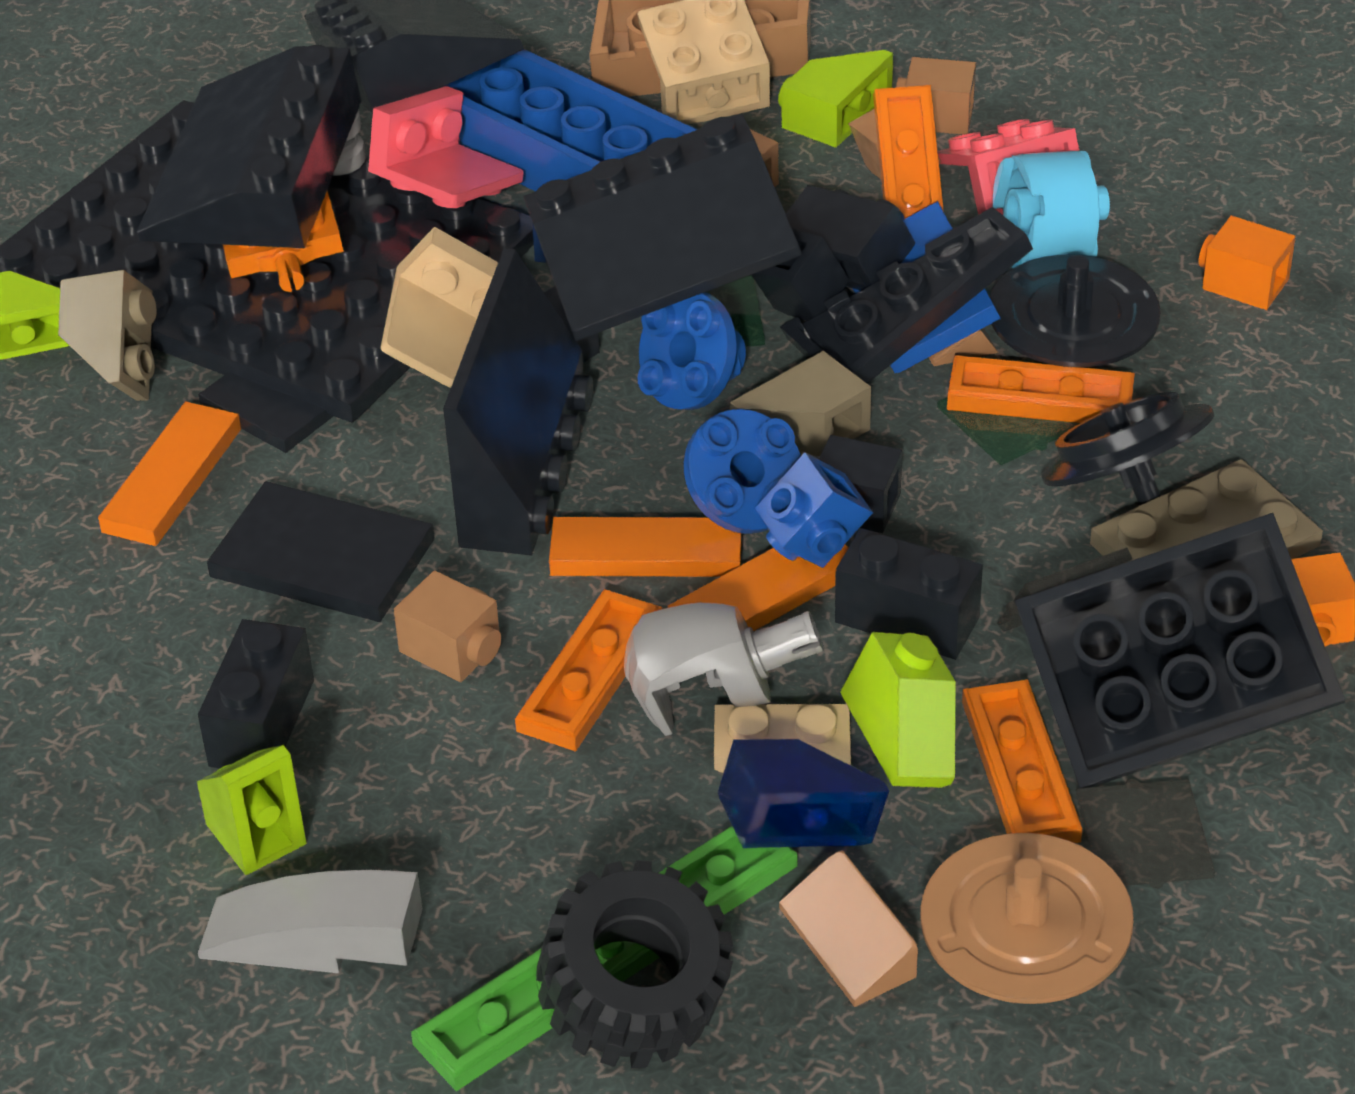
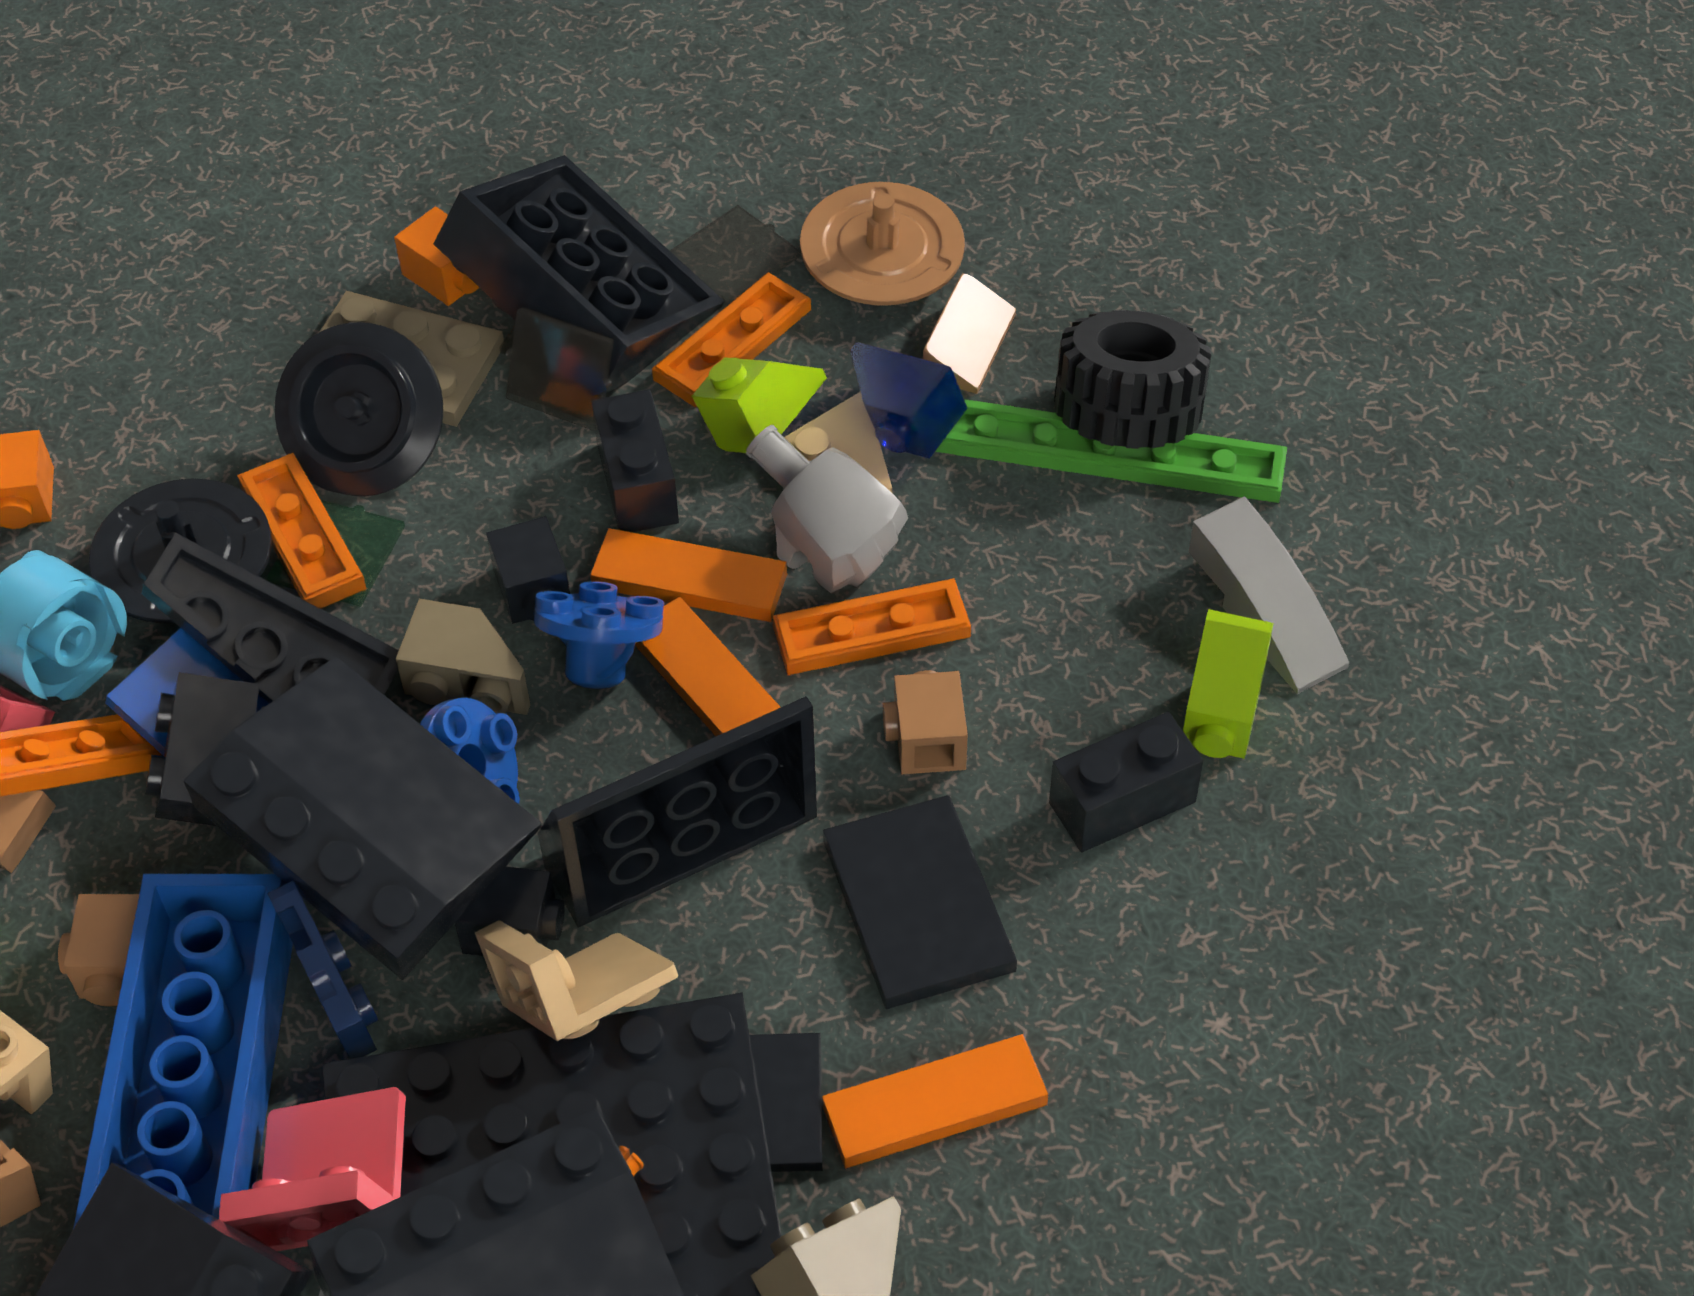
camera: 130 degrees left, 10 degrees up
(812, 511) = (619, 532): blue brick -> none

